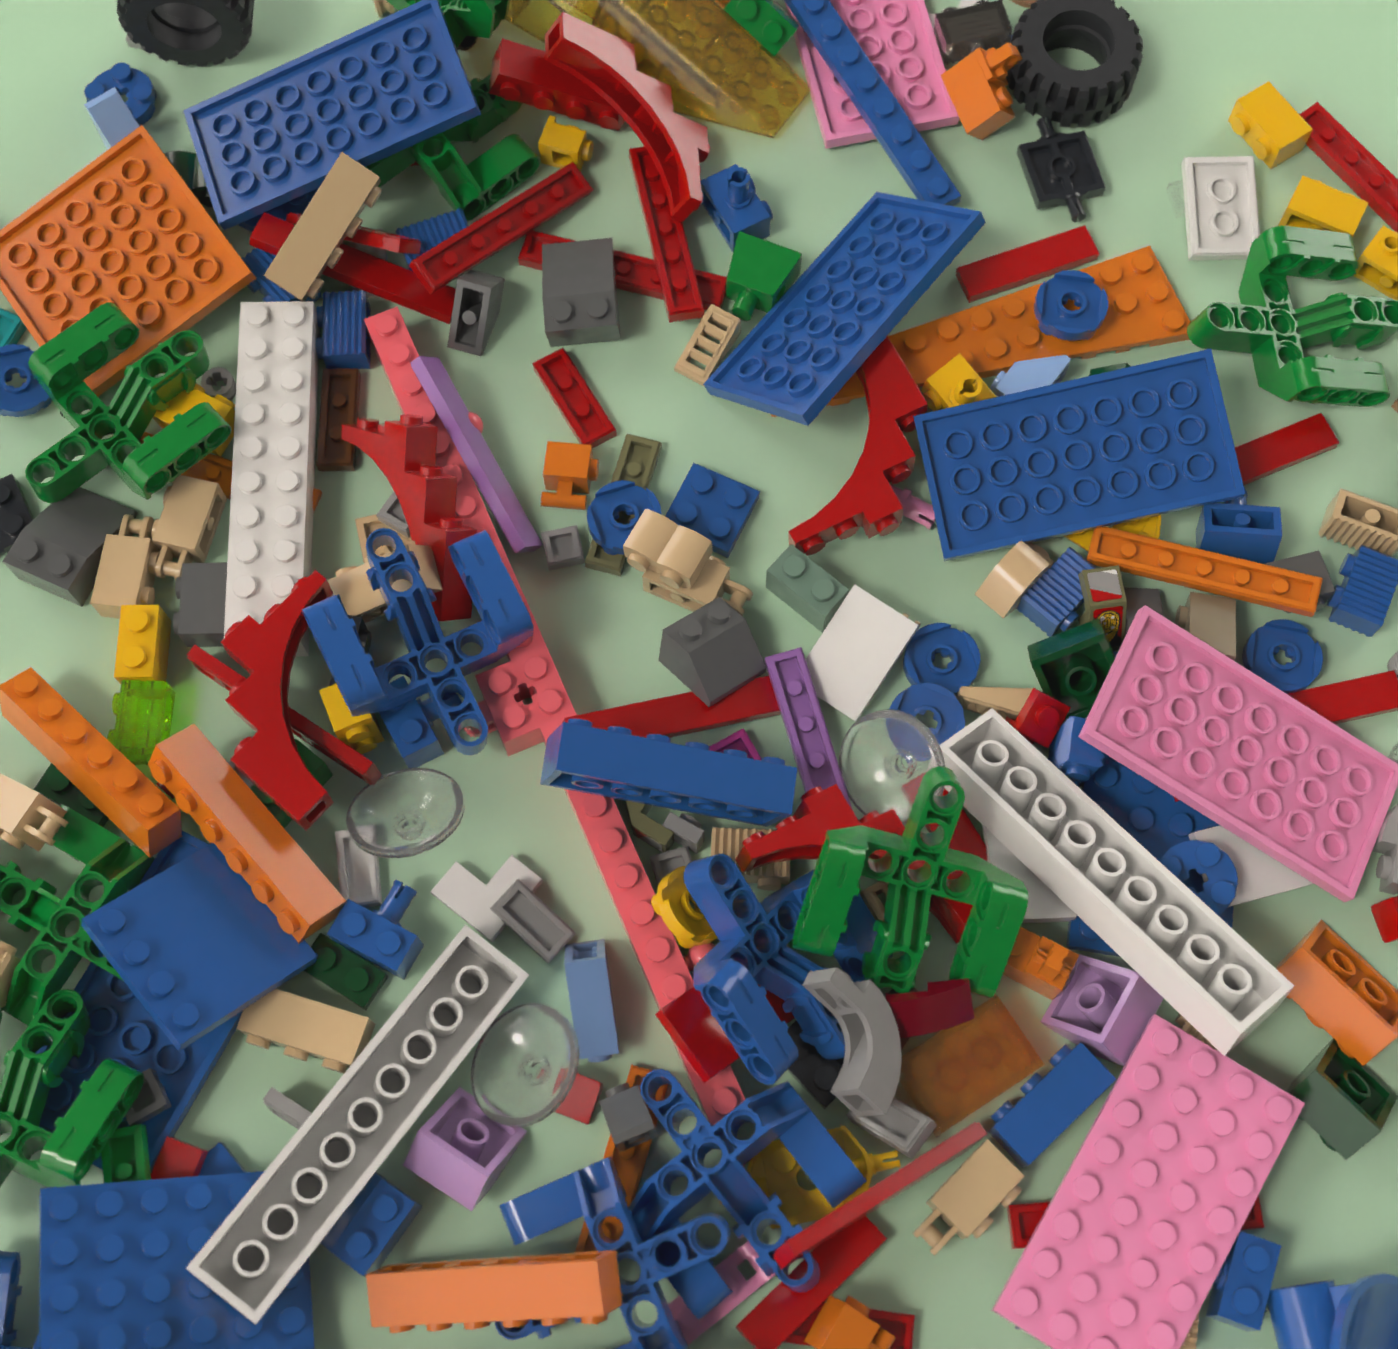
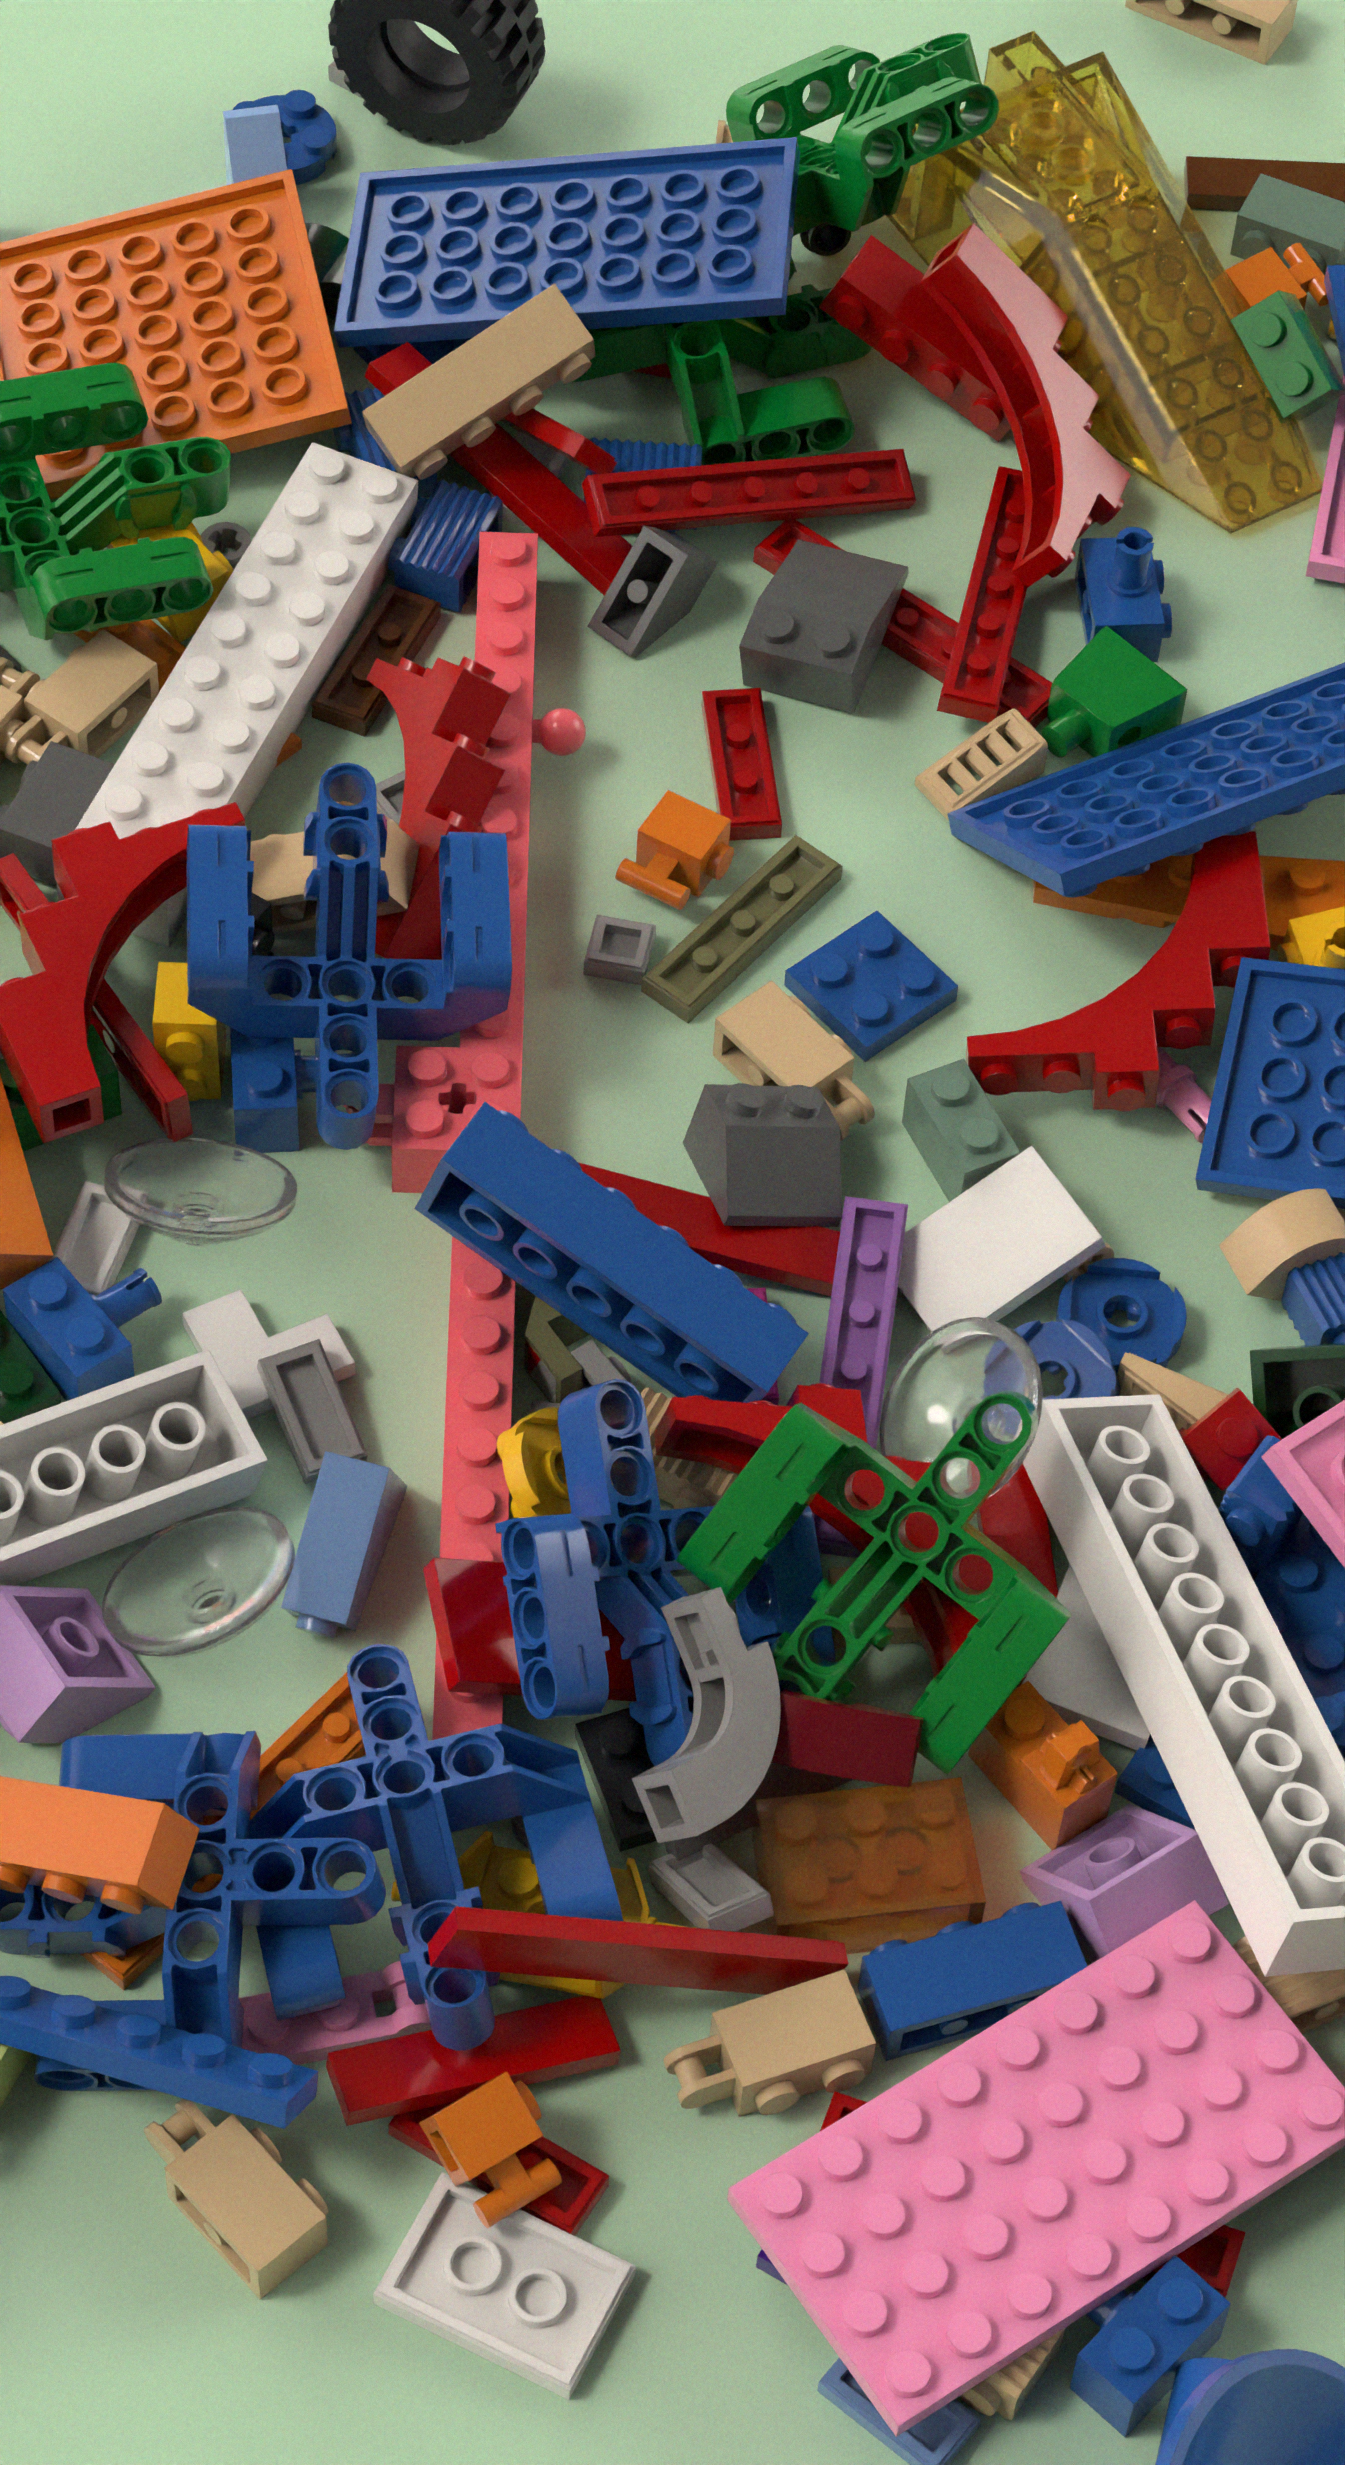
camera: 20 degrees right, 15 degrees down
(476, 454) = (552, 769): medium lavender tile -> none
(563, 145) = (901, 420): yellow brick -> none
(581, 1099) = (255, 1669): red slope -> none
(605, 510) = (724, 964): blue plate -> none
(627, 1117) = (311, 1714): dark grey slope -> none
(667, 549) = (769, 989): tan brick -> none

